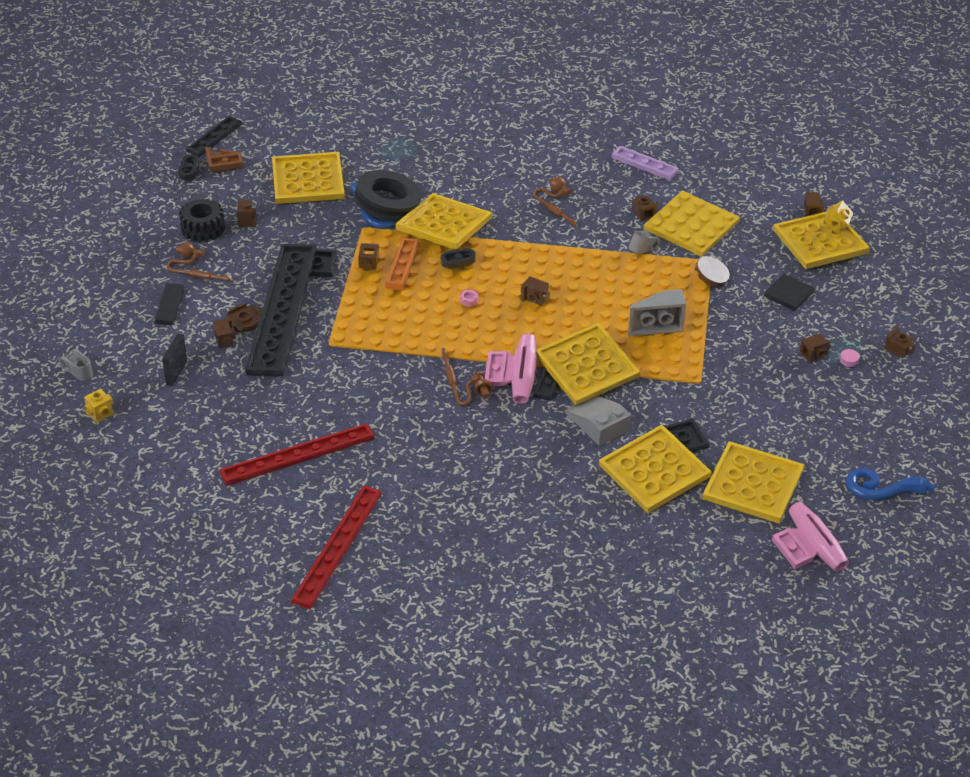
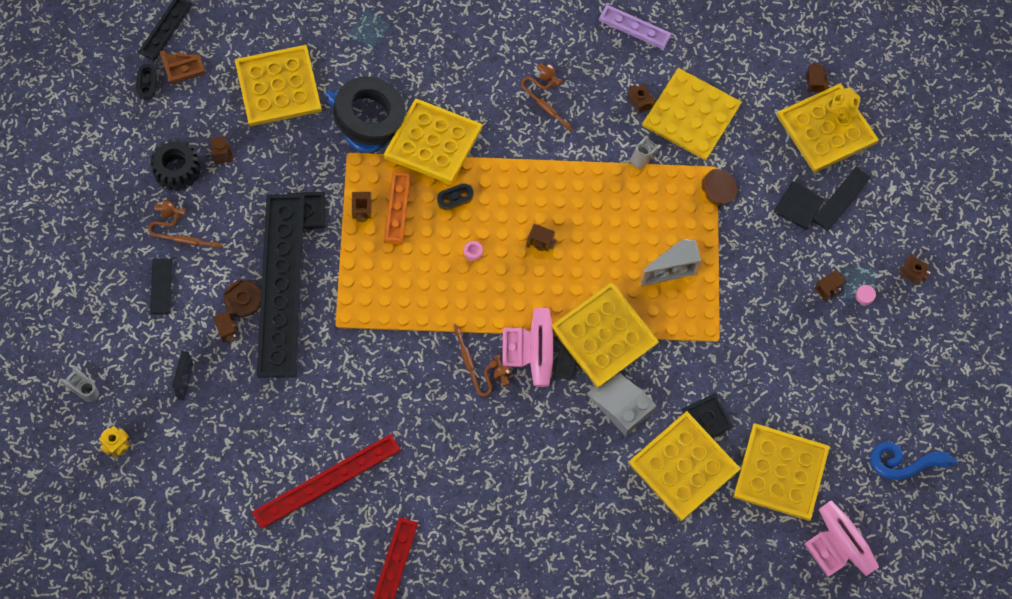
camera: 10 degrees left, 25 degrees up
(831, 290) = (841, 198): none -> black tile

